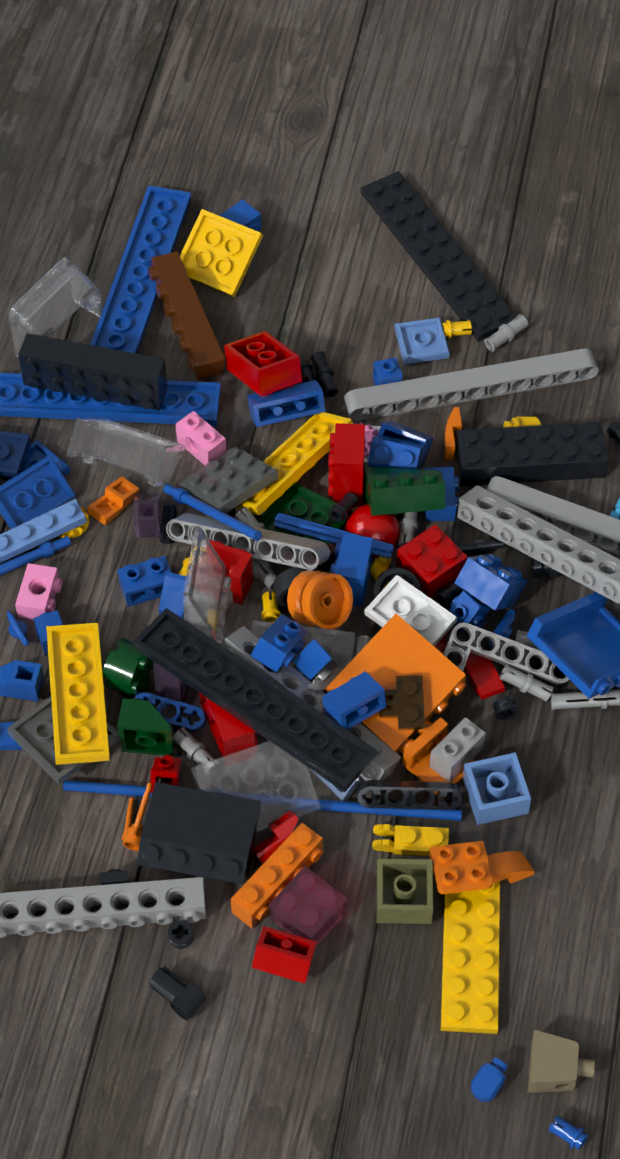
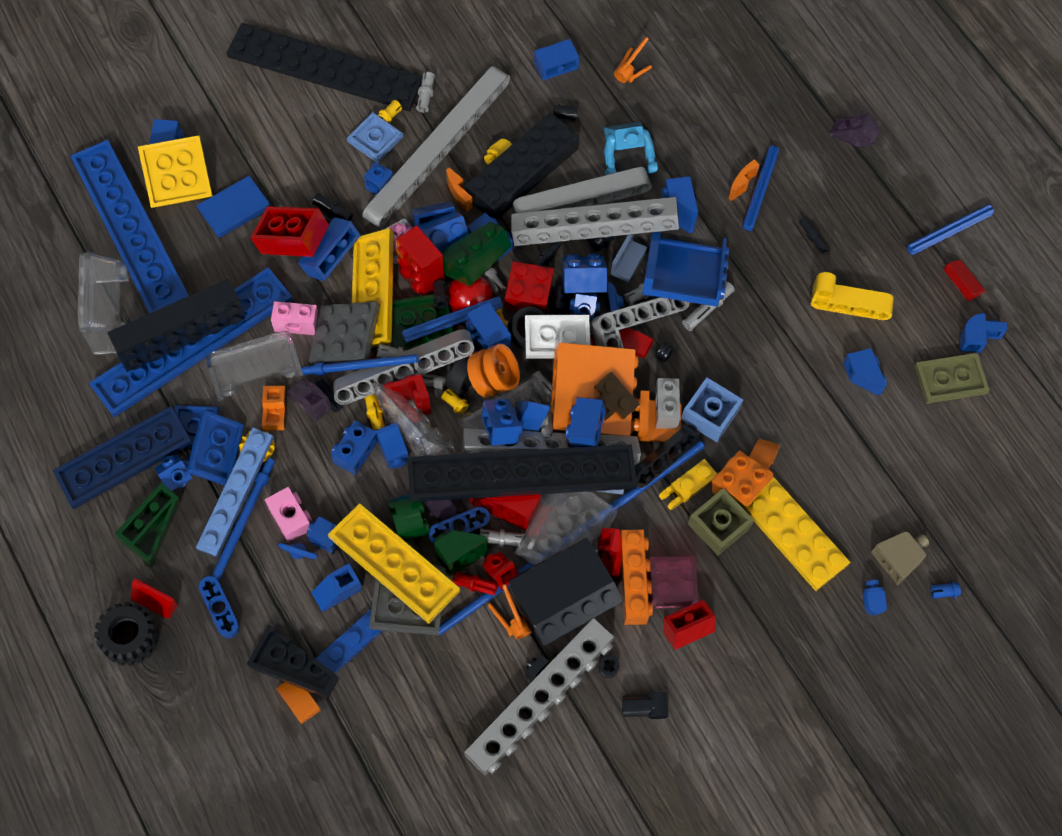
camera: 45 degrees left, 10 degrees up
(133, 768) = (474, 583): none -> red axle
(186, 315) = (197, 234): reddish brown brick -> none
(243, 315) = (233, 206): none -> blue tile
(526, 682) = (663, 325): light grey pin -> none
(550, 597) = (628, 259): none -> sand blue panel

